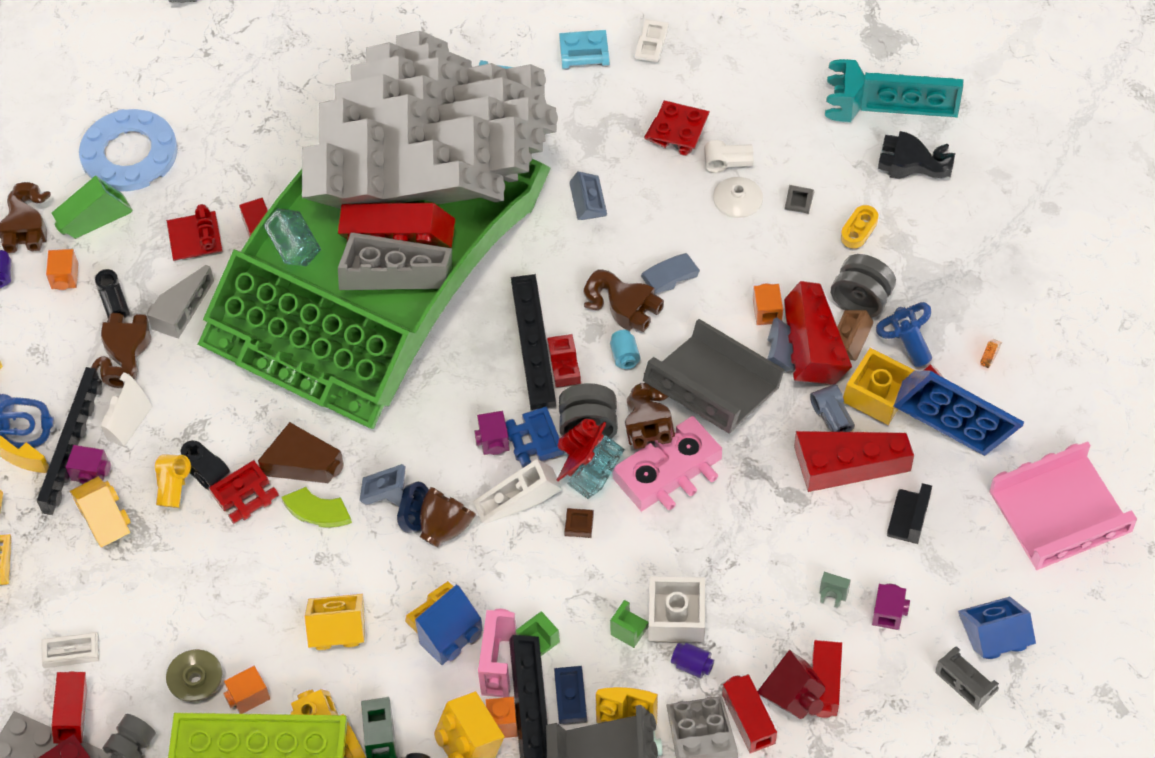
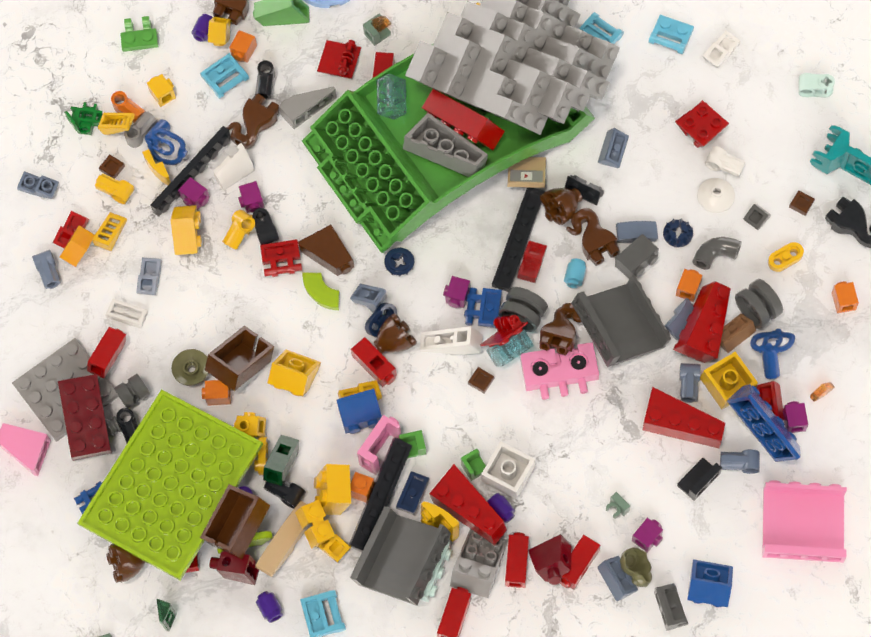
camera: 30 degrees right, 10 degrees up
(22, 263) = (219, 31): none -> yellow brick
(49, 307) = (222, 70): none -> medium azure plate
(77, 590) = (149, 276): none -> sand blue slope
(165, 436) = (250, 197): none -> magenta brick
(222, 185) = (372, 34): none -> sand green panel
(225, 174) = (381, 23): none -> clear orange tile
(251, 638) = (236, 360): none -> reddish brown piece
(389, 426) = (397, 254): none -> dark blue gear
(433, 561) = (374, 362): none -> red brick
(503, 263) = (528, 173): none -> tan tile
(563, 280) = (560, 204): none -> reddish brown piece
(579, 255) = (589, 192): none -> black hinge
(654, 670) = (467, 505): none -> red wedge
(689, 299) = (637, 257): none -> dark grey brick
(713, 261) = (670, 236): none -> dark blue gear
(772, 251) = (716, 247): none -> dark grey cylinder
(780, 35) = (814, 85): none -> light aqua piece
(841, 163) = (802, 203): none -> reddish brown tile
(881, 676) = (616, 579): none -> sand blue slope
(897, 648) = (635, 564): none -> olive hair
(952, 468) = (747, 461): none -> sand blue piece
(953, 240) = (845, 297): none -> orange brick
(983, 387) = (795, 417): none -> magenta brick

